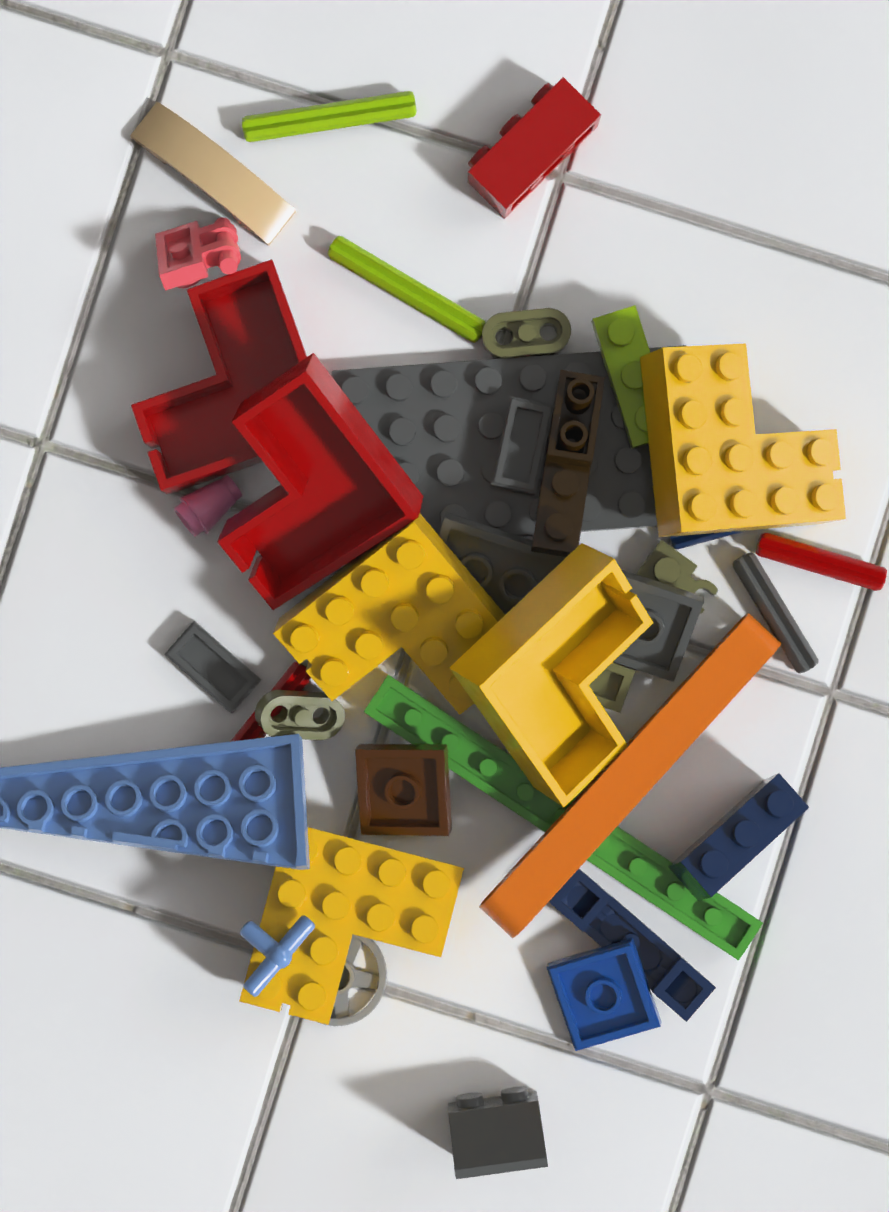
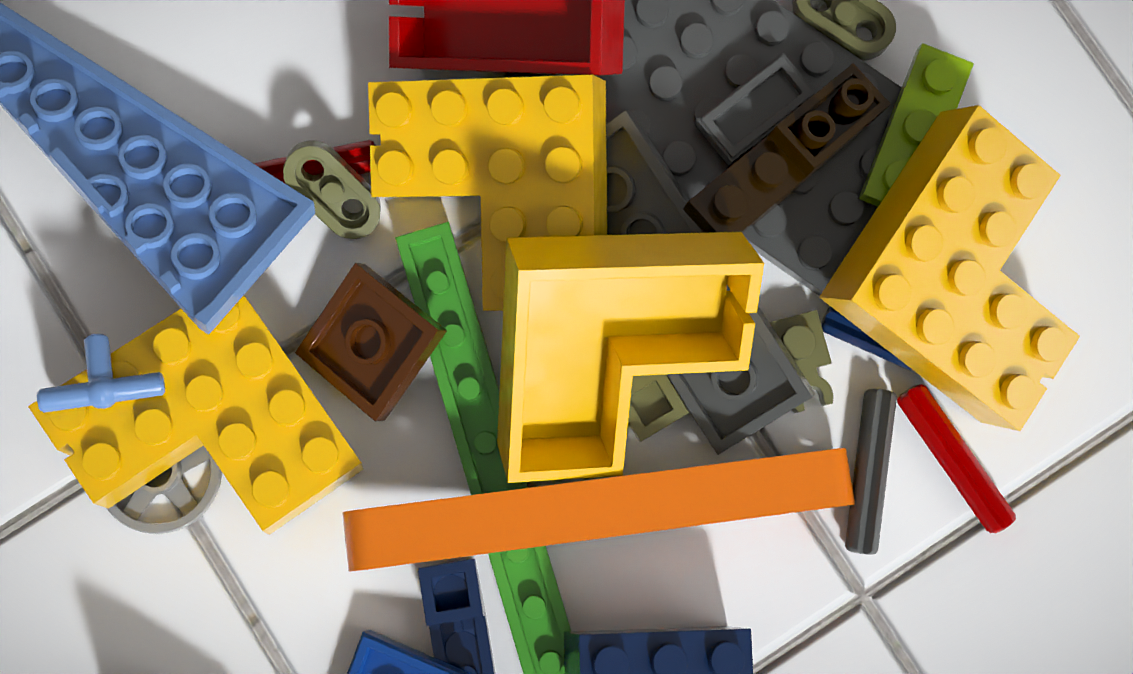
camera: 35 degrees right, 5 degrees down
(213, 667) = (293, 85): dark grey tile -> none

